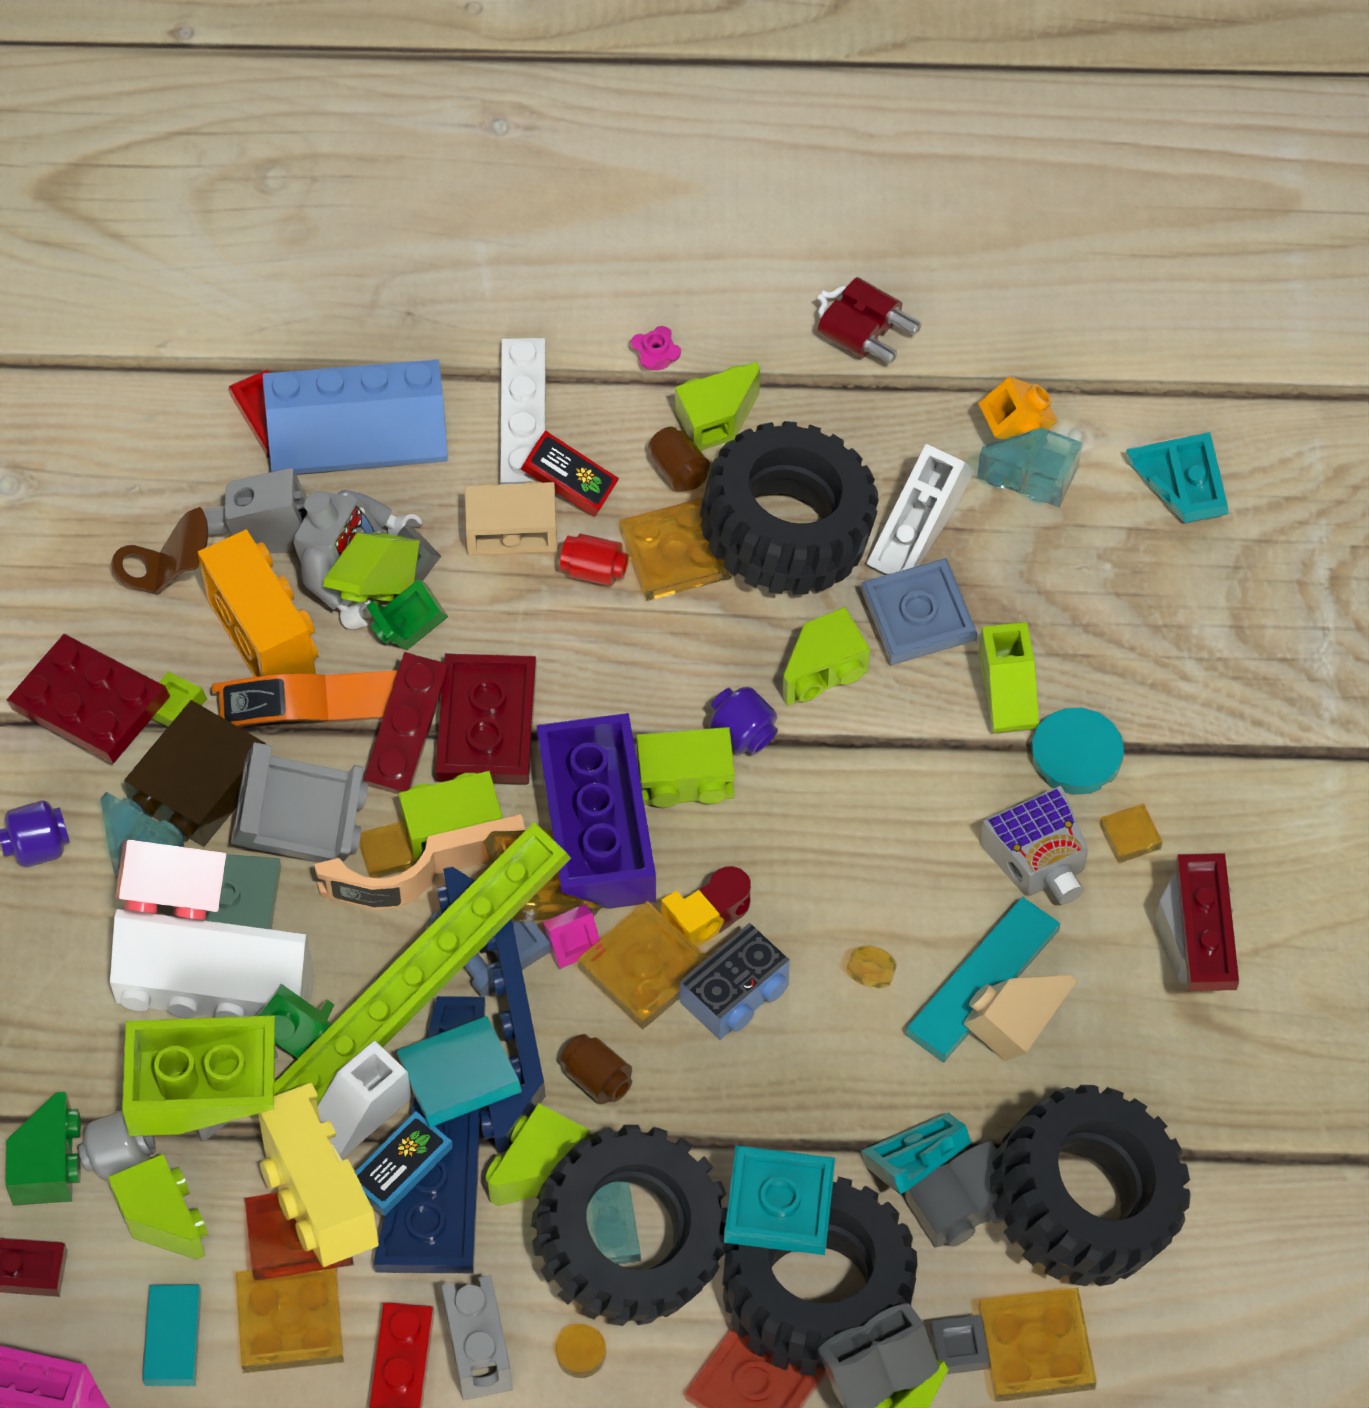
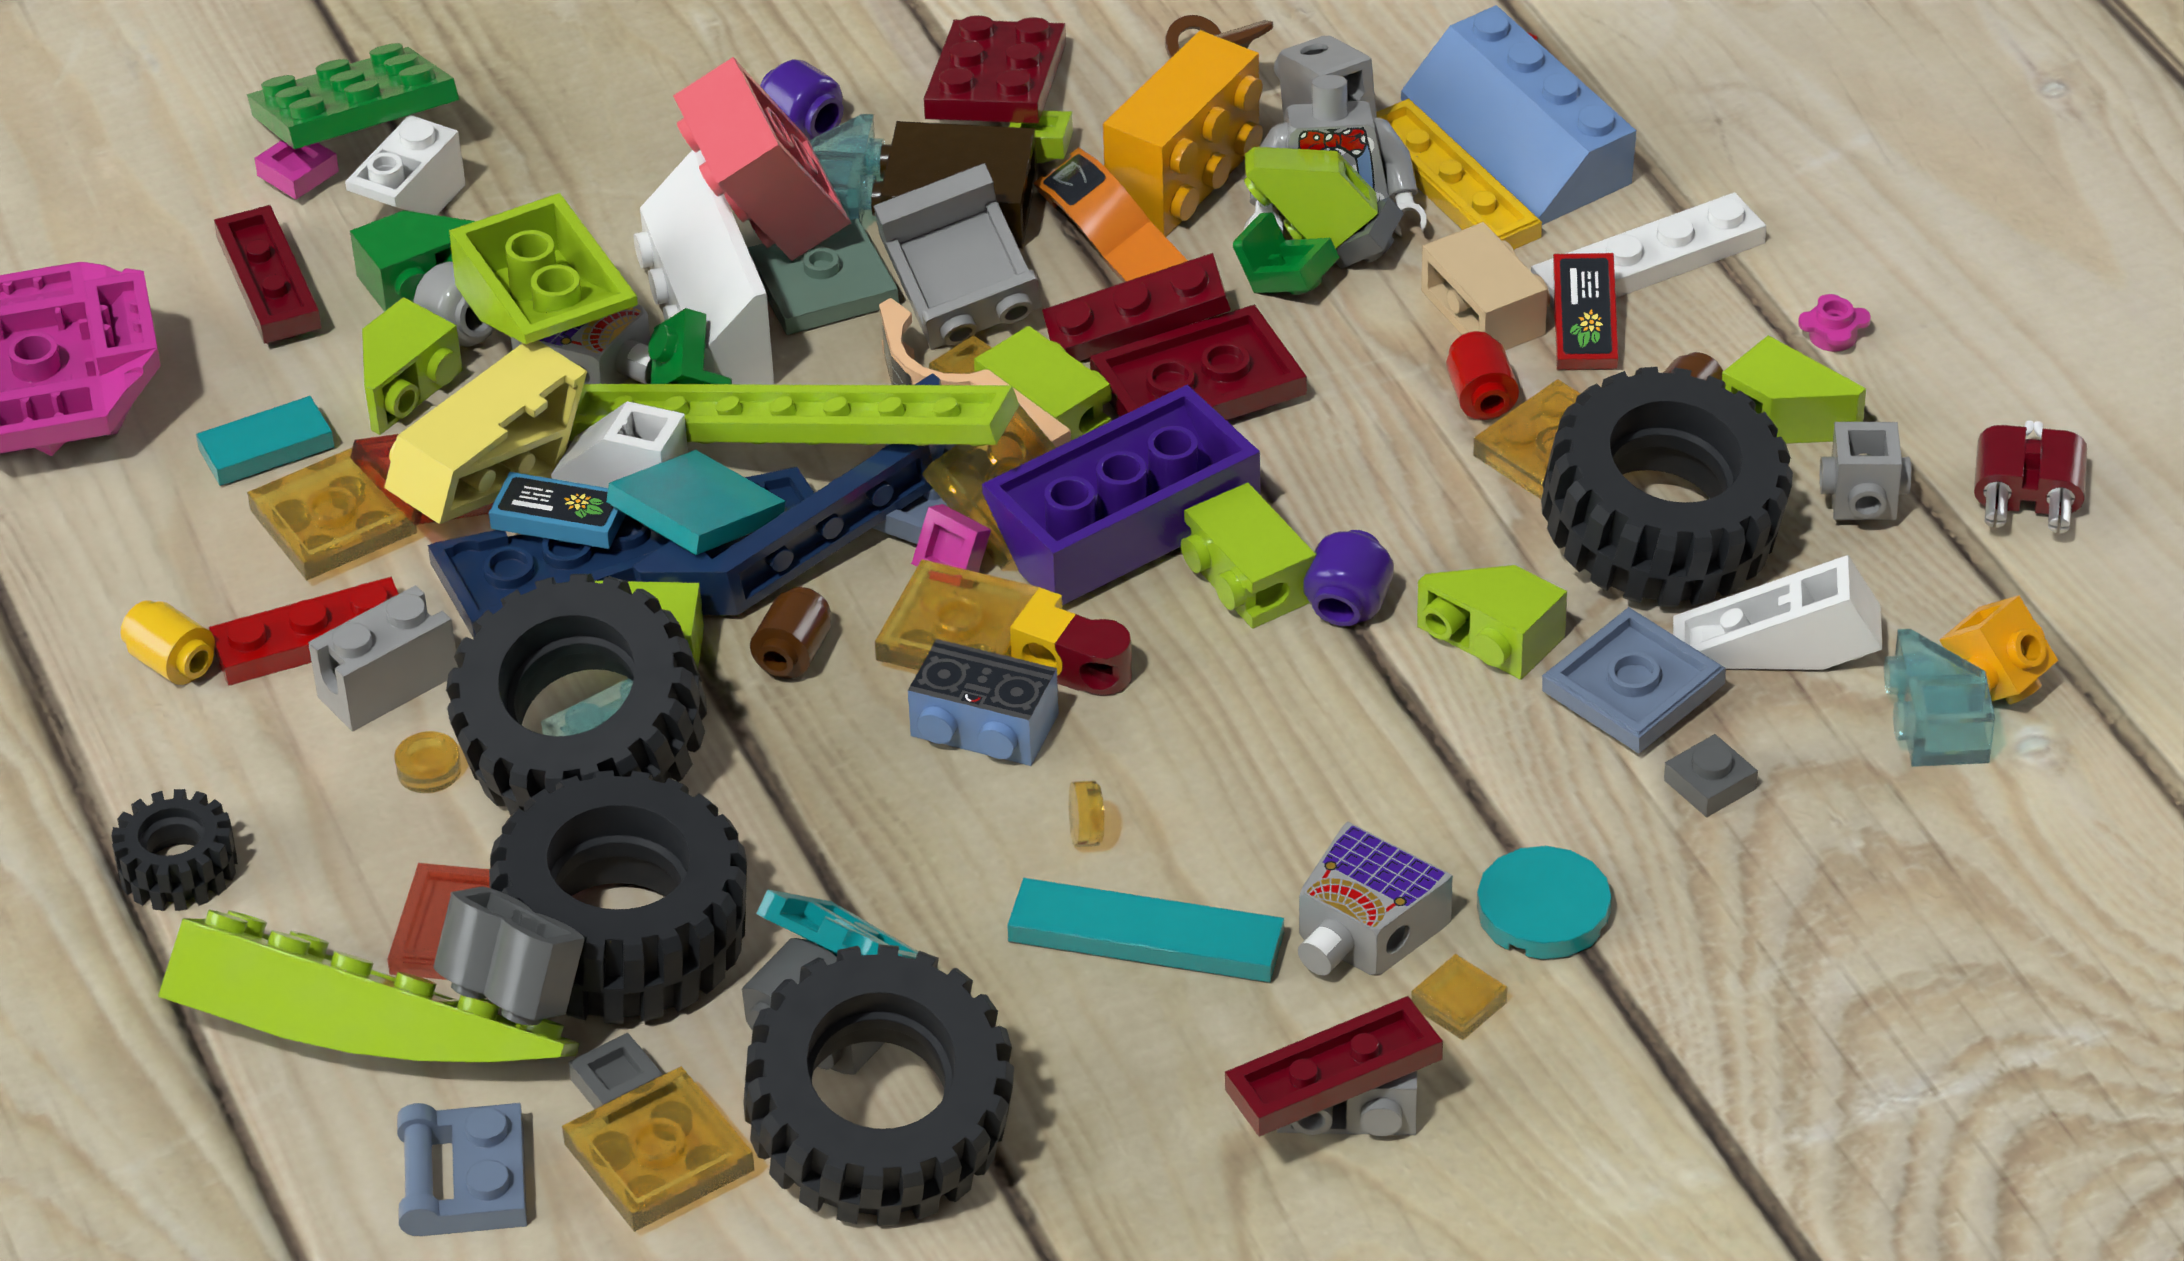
camera: 65 degrees right, 15 degrees down
(390, 482) = (1457, 180): none -> yellow tile
(779, 1200) = (664, 789): teal tile -> none
(823, 398) = (1869, 483): none -> light grey brick
(1009, 677) = (1590, 781): lime slope -> none
(1016, 1011) = (1105, 958): tan slope -> none
(1018, 606) = (1710, 775): none -> dark grey plate
(1183, 475) = (2050, 856): teal wing -> none

